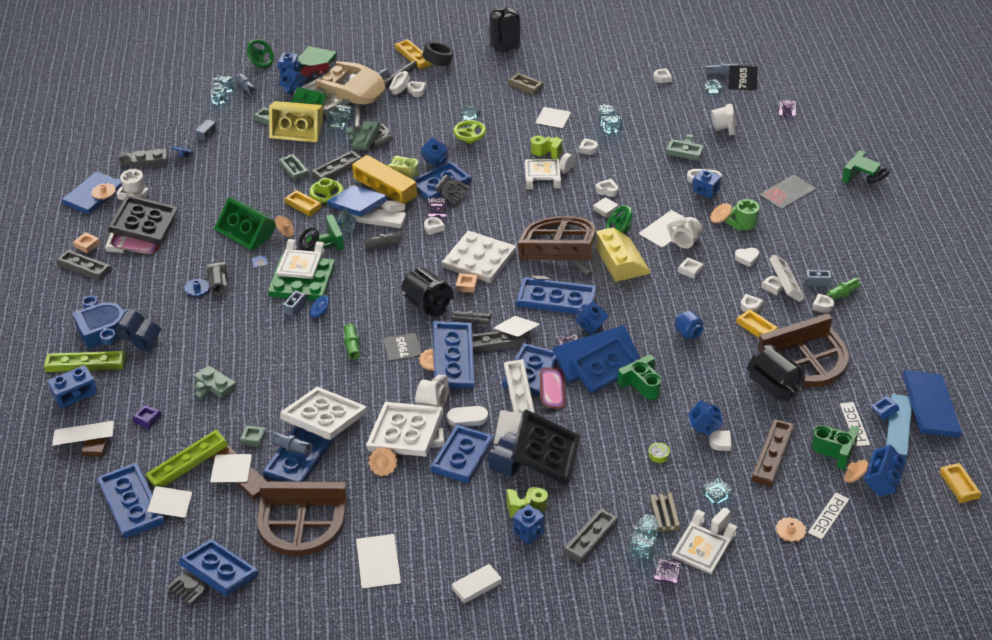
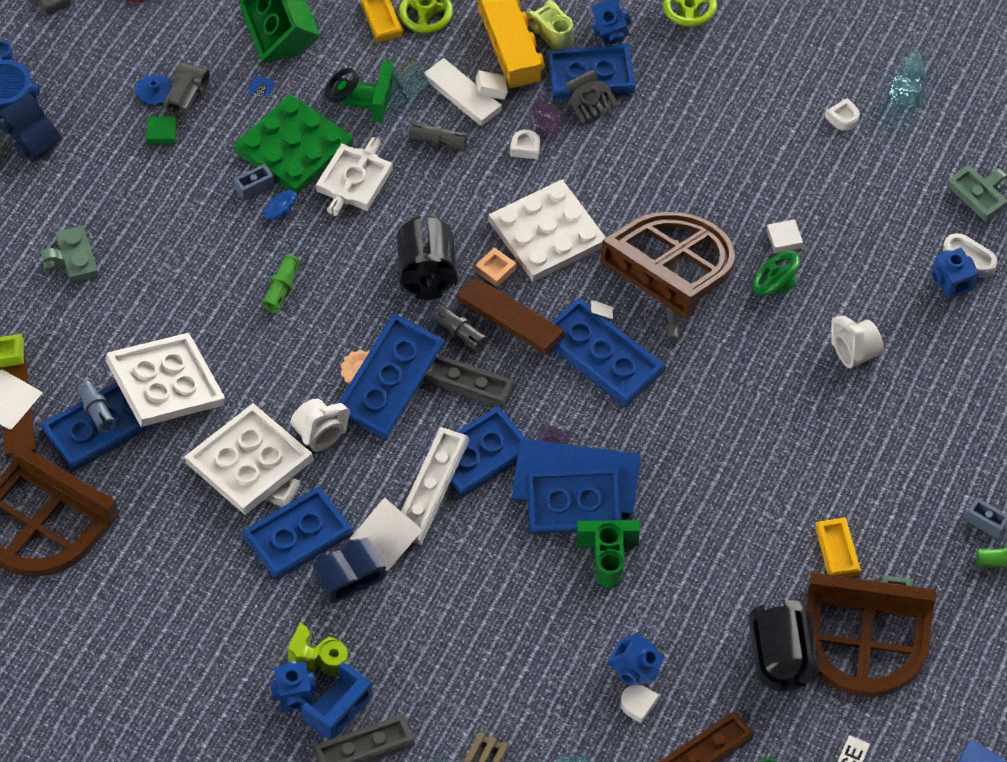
camera: 30 degrees right, 15 degrees up
(218, 303) = (161, 130): none -> green tile
(253, 436) = (66, 364): sand green tile -> none
(284, 226) = (325, 46): light nougat piece -> none
(300, 263) = (300, 121): white flag -> none
(351, 276) = (354, 177): none -> white plate
(357, 200) = (448, 52): tile -> none
(378, 561) = (89, 631): white sticker -> none
(382, 461) = (188, 492): light nougat piece -> none
(402, 346) = (344, 323): sticker -> none
(467, 416) = (343, 481): white tile -> none
(476, 583) = (176, 732): white tile -> none
(494, 299) = (510, 315): none -> reddish brown tile
(516, 326) = (508, 373): white sticker -> none
(541, 146) = (776, 83): lime leg -> none
(542, 170) = (746, 125): white flag -> none
(545, 447) = (394, 587): black plate -> none
(552, 388) = (482, 497): sticker -> none
(553, 117) = (837, 34): white sticker -> none
(559, 519) = (339, 702): none -> blue panel
(566, 163) = (786, 130): white tile -> none
(591, 317) = (606, 423): blue brick -> none
(607, 188) = (813, 202): white tile -> none
(620, 255) = (740, 331): light yellow slope -> none
(658, 232) = (856, 306): white sticker -> none
(658, 452) = (542, 674): tile -> none
(689, 325) = (735, 500): blue head -> none
(690, 268) = (822, 403): white tile -> none
(721, 213) = (937, 333): light nougat piece -> none
(746, 215) = (968, 357): bright green piece -> none
(747, 256) = (918, 426): white tile -> none
(752, 303) = (857, 509): white tile -> none
(772, 285) = (916, 494): white tile -> none
(786, 278) = (939, 495): white tile -> none
(823, 304) = (960, 564): white tile -> none

